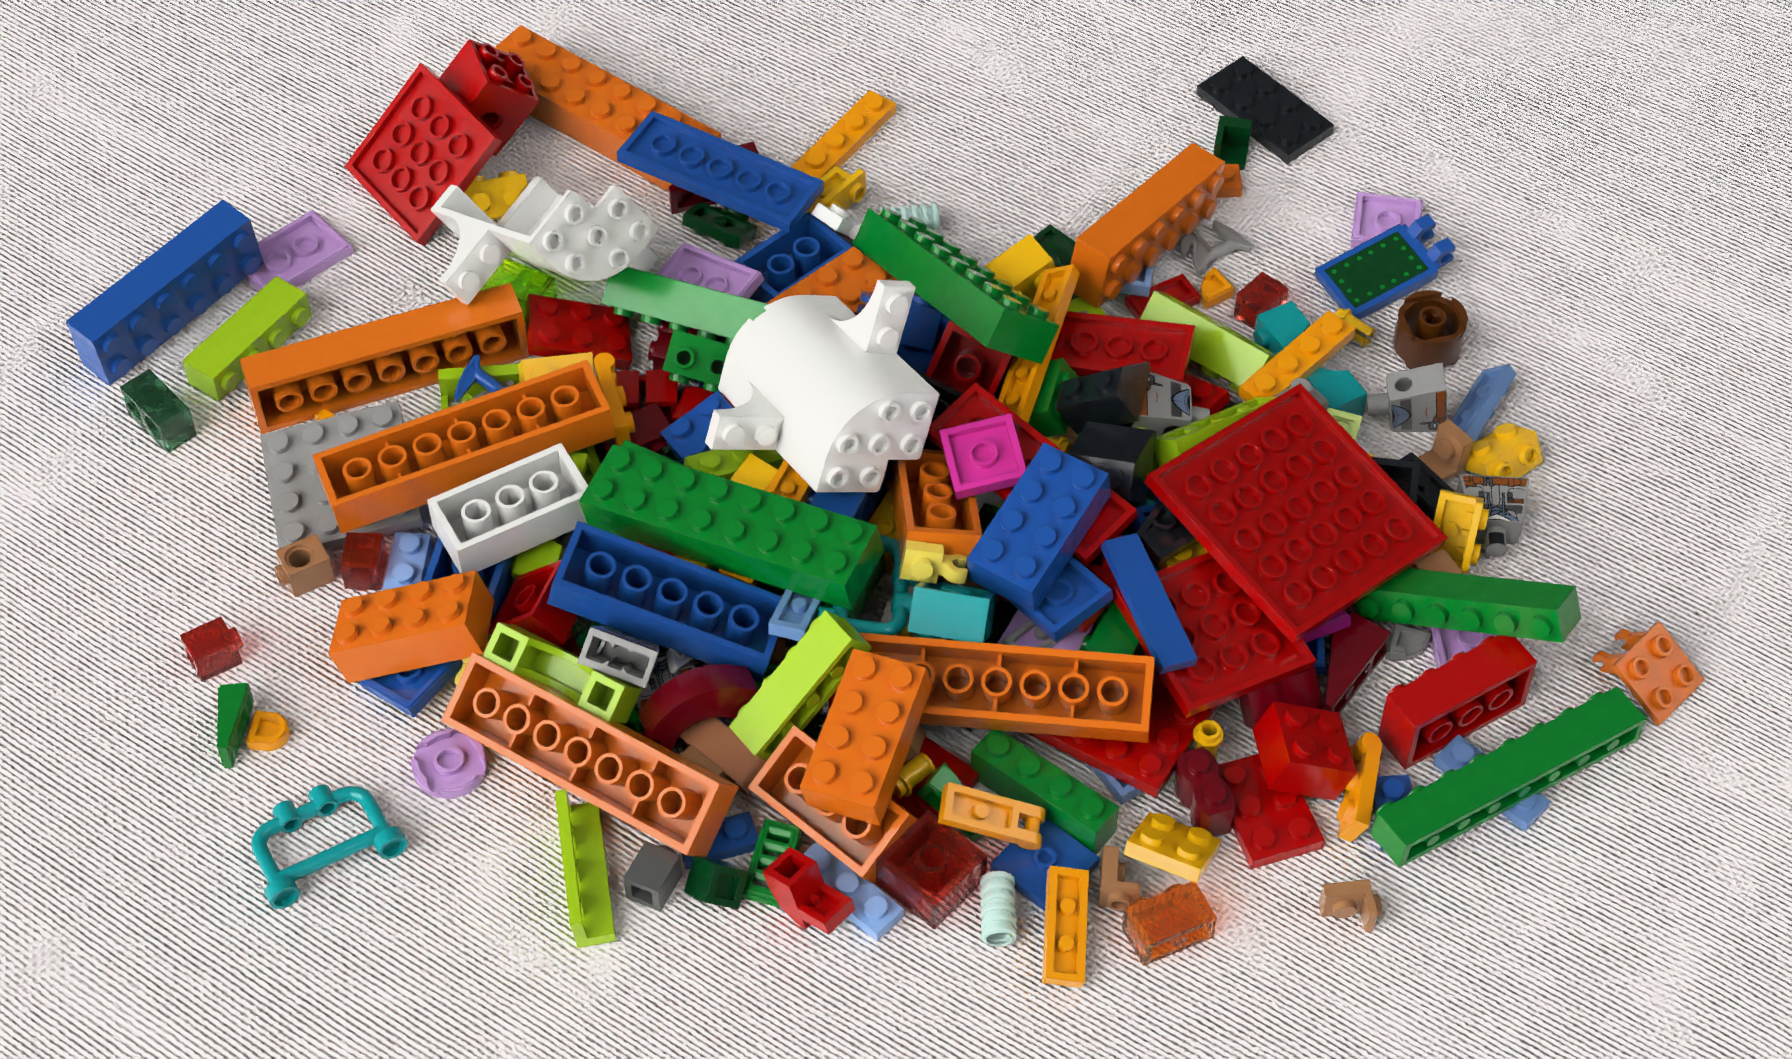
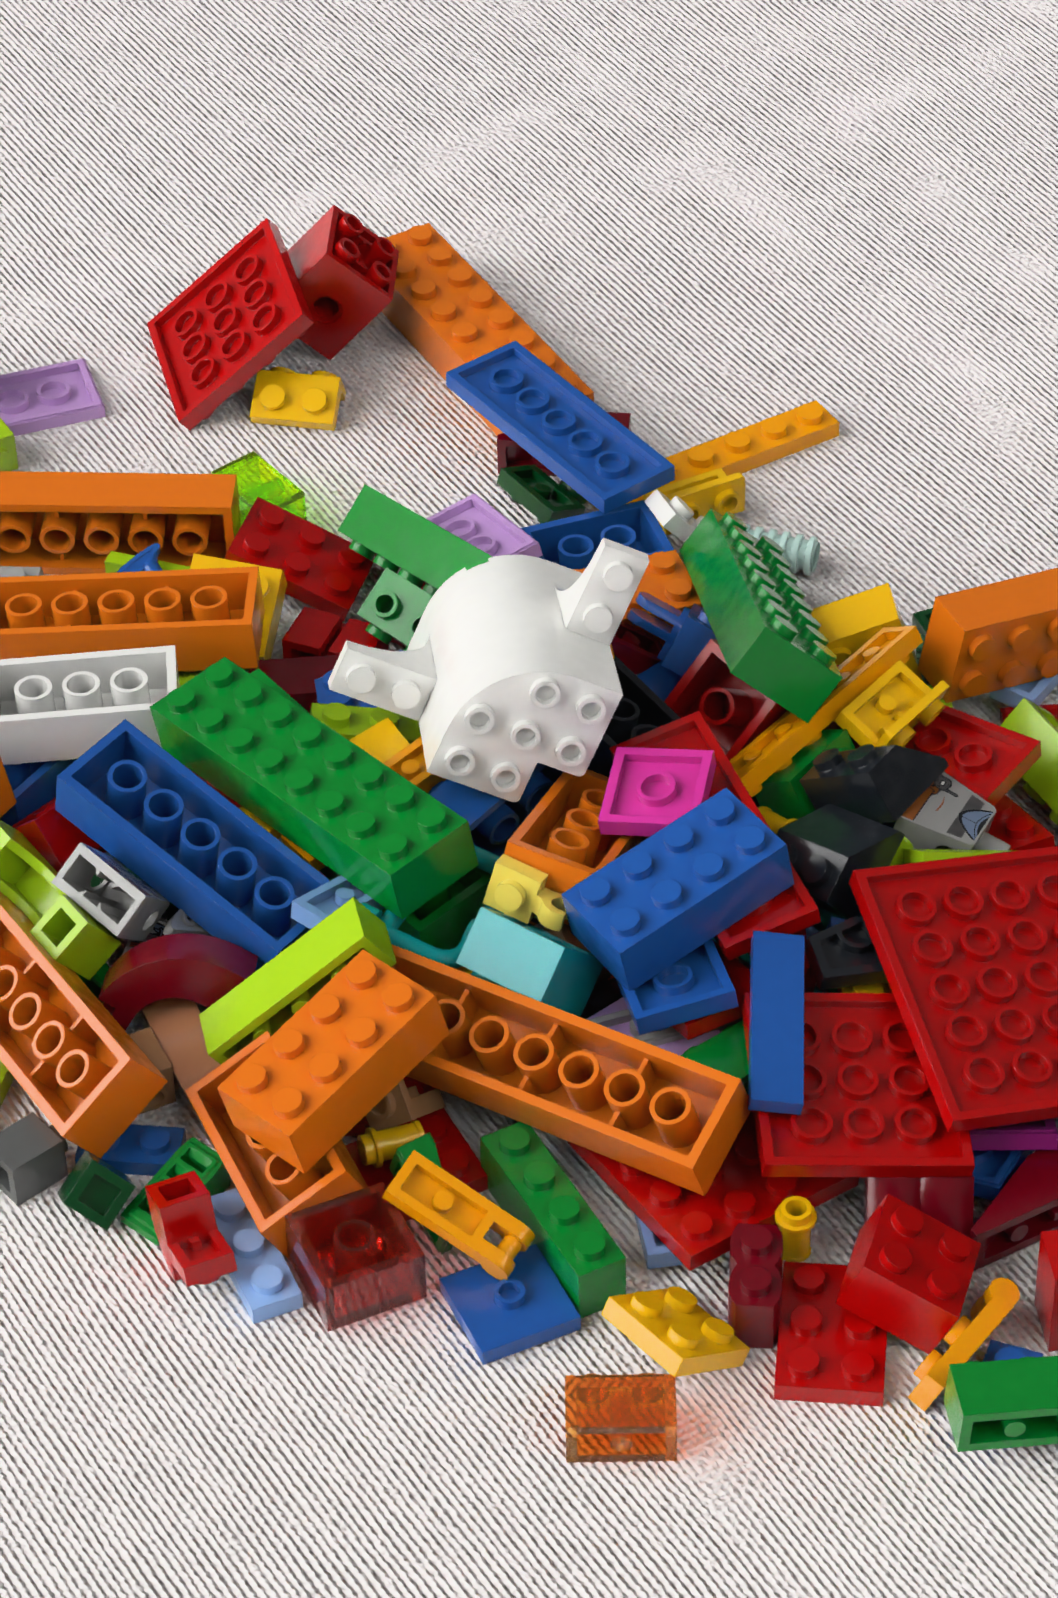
camera: 25 degrees right, 10 degrees down
(546, 232) = (305, 427): white cylinder -> none
(623, 421) = (284, 628): light orange plate -> none
(998, 908) = (416, 1331): light aqua piece -> none
(1065, 926) = (484, 1377): light orange plate -> none
(1087, 334) = (892, 708): none -> yellow bracket
(1112, 888) = (579, 1343): medium nougat bracket -> none
(1348, 898) = (873, 1469): medium nougat bracket -> none

